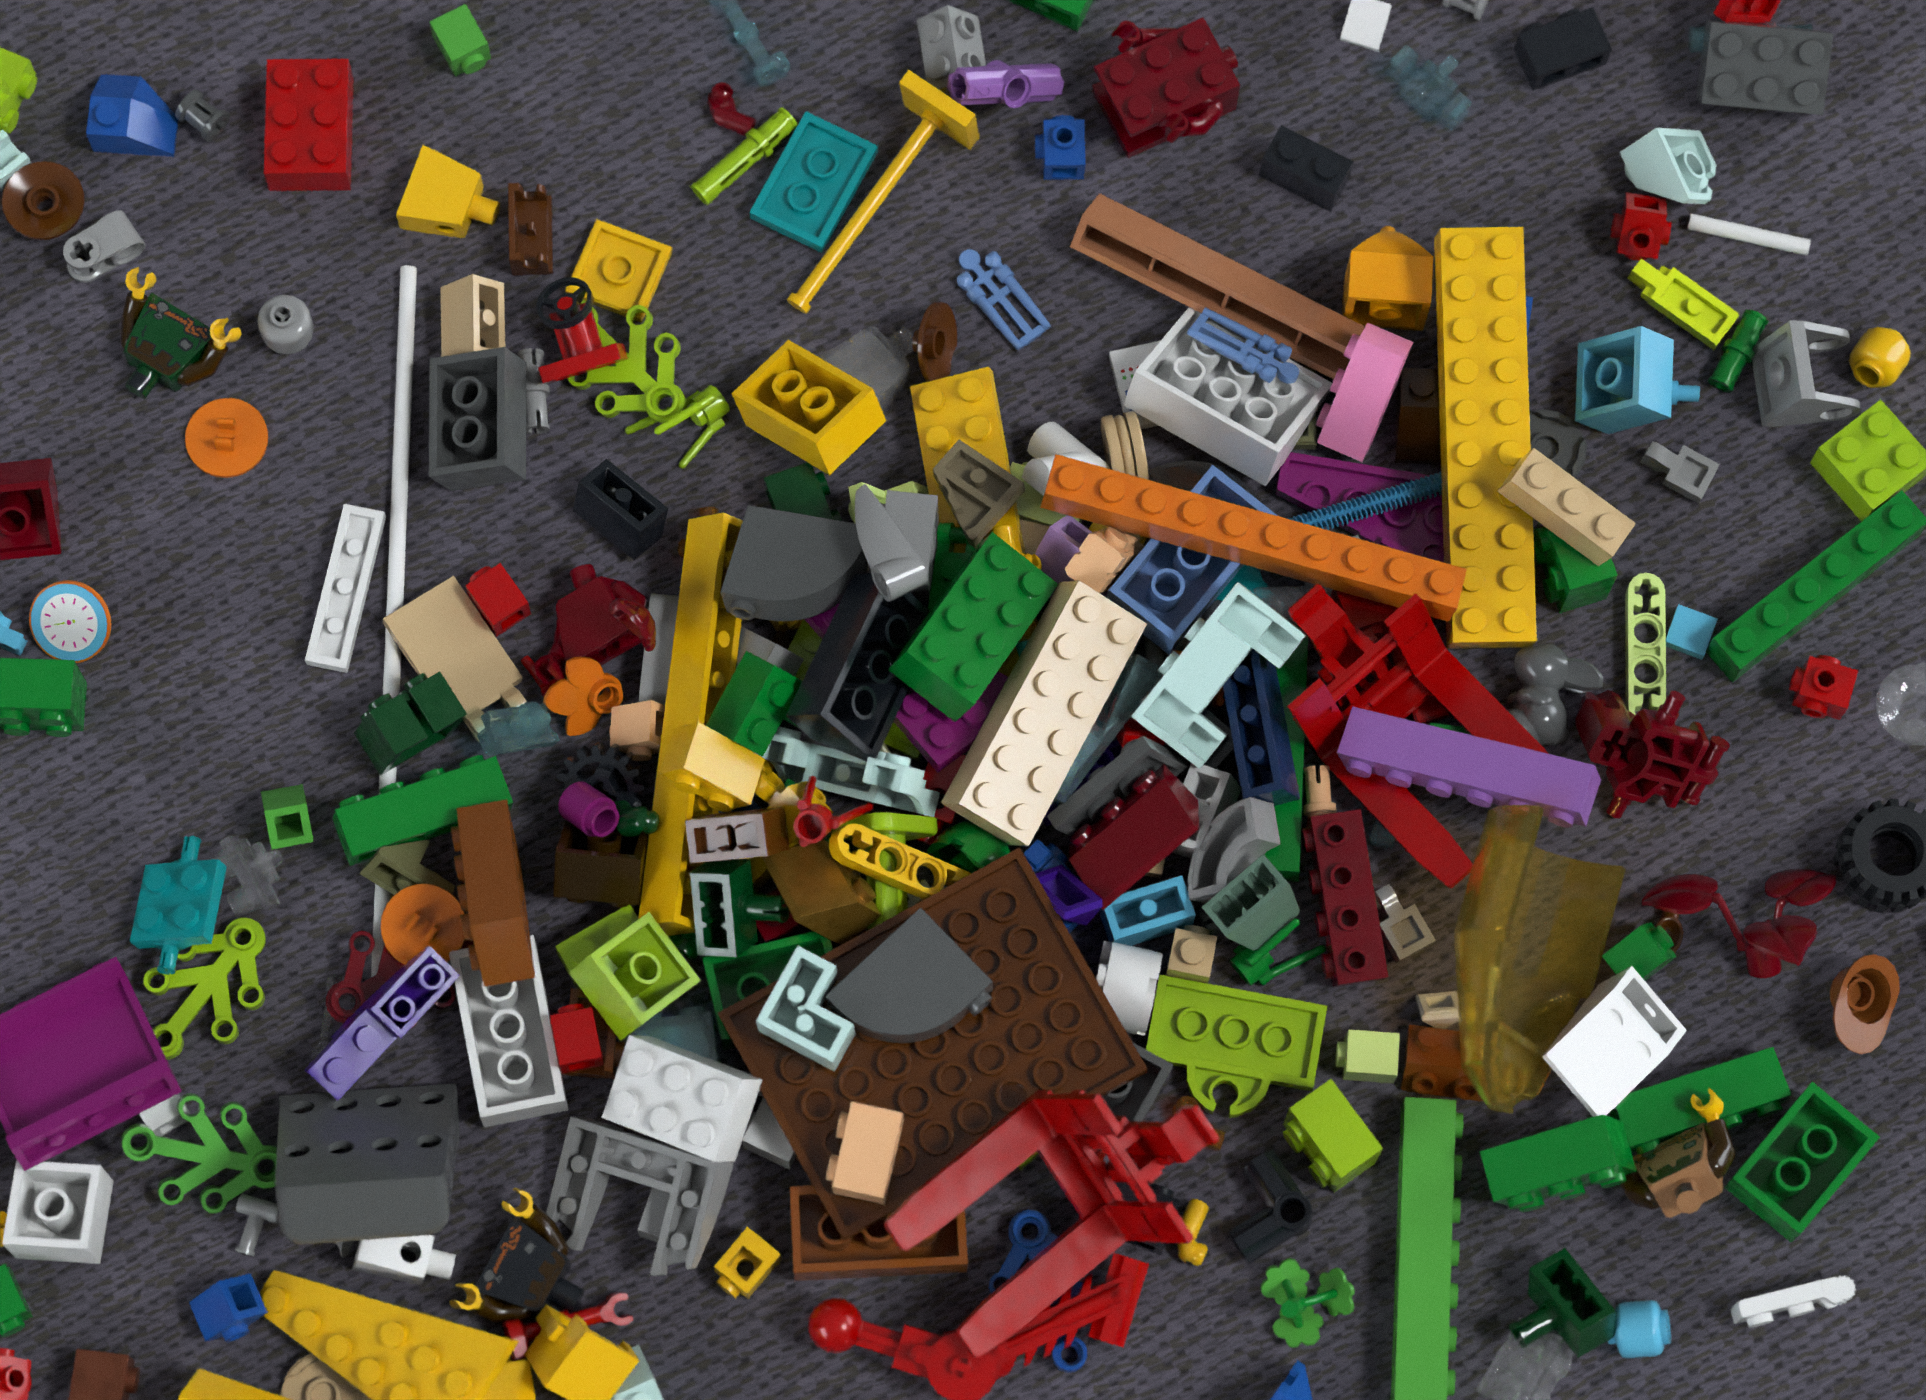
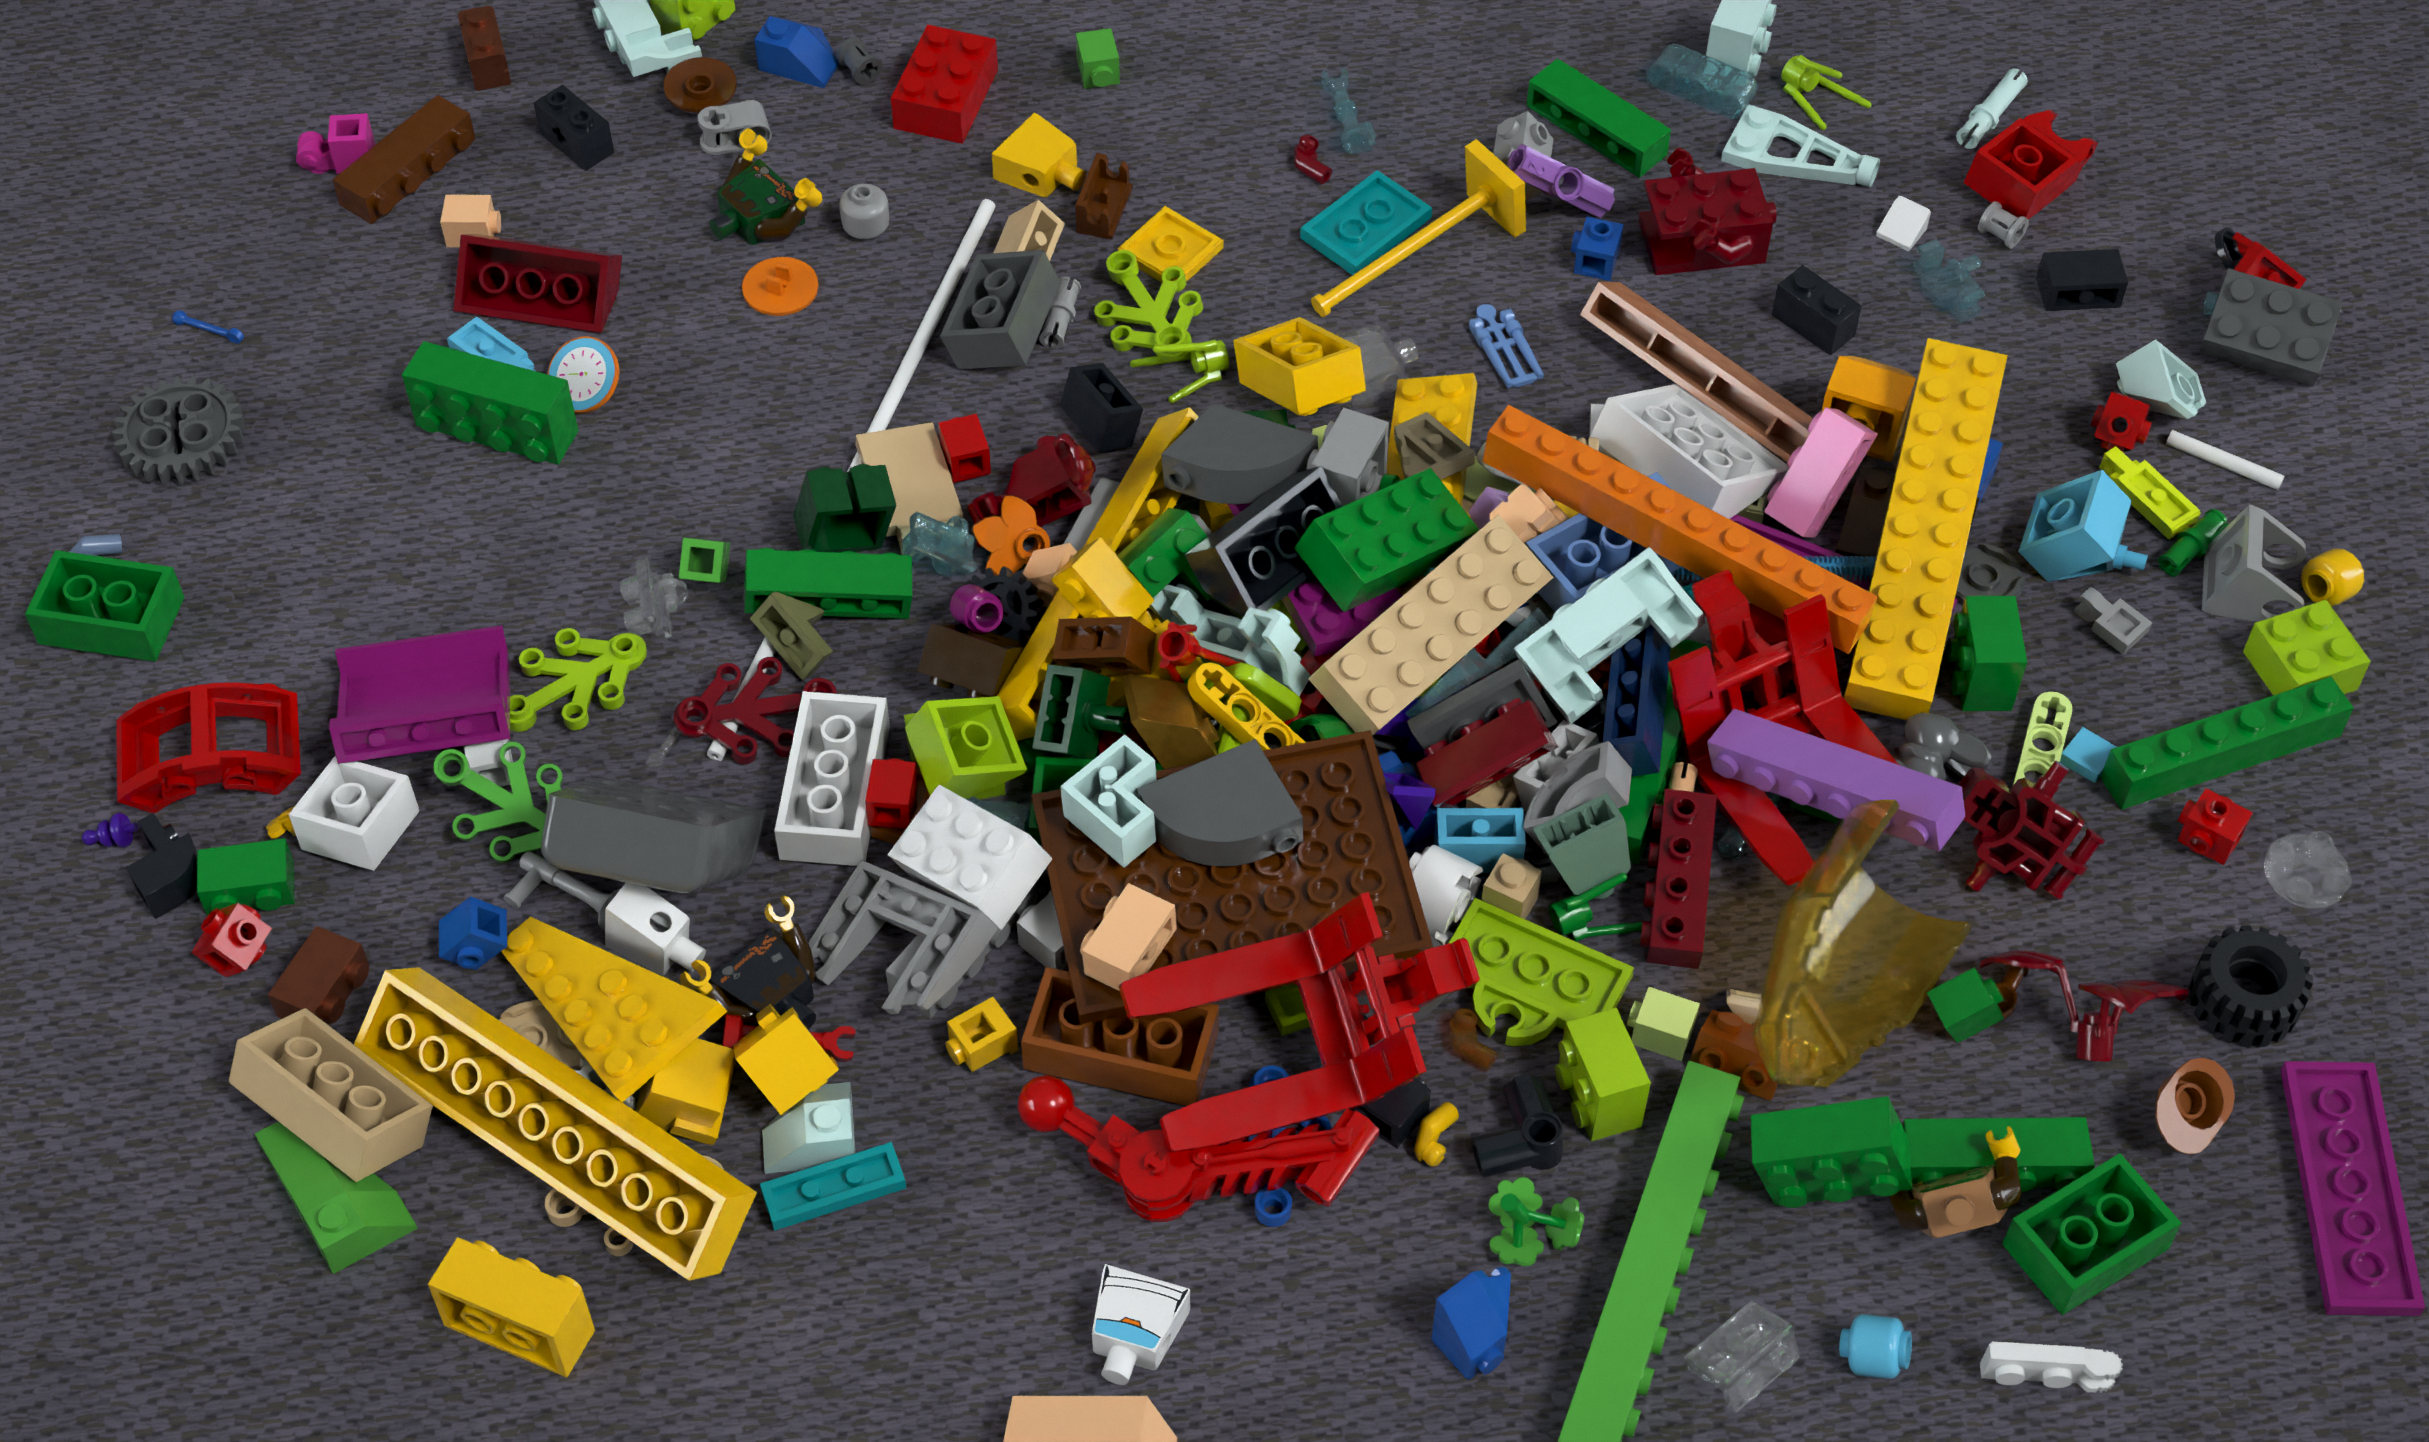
camera: 20 degrees right, 20 degrees down
(178, 904) = (576, 602): teal plate -> none
(345, 588) = (833, 412): white plate -> none
(381, 1020) = (717, 730): slope -> none
(420, 918) = (786, 668): orange piece -> none
(492, 893) = (861, 648): dark orange brick -> none
(575, 333) = (1114, 278): red piece -> none
(635, 820) = (1017, 625): dark green arm -> none
(756, 145) = (1326, 183): lime pin -> none
(891, 557) = (1326, 443): light grey piece -> none
(936, 341) = (1434, 347): reddish brown dish -> none
(1244, 353) = (1718, 424): medium blue piece -> none
(1402, 929) = (1728, 924): light grey plate -> none
(1566, 507) = (1990, 582): tan brick -> none
(1567, 1305) = (1805, 1293): dark green brick -> none
(1613, 1041) = (1920, 1060): white slope -> none

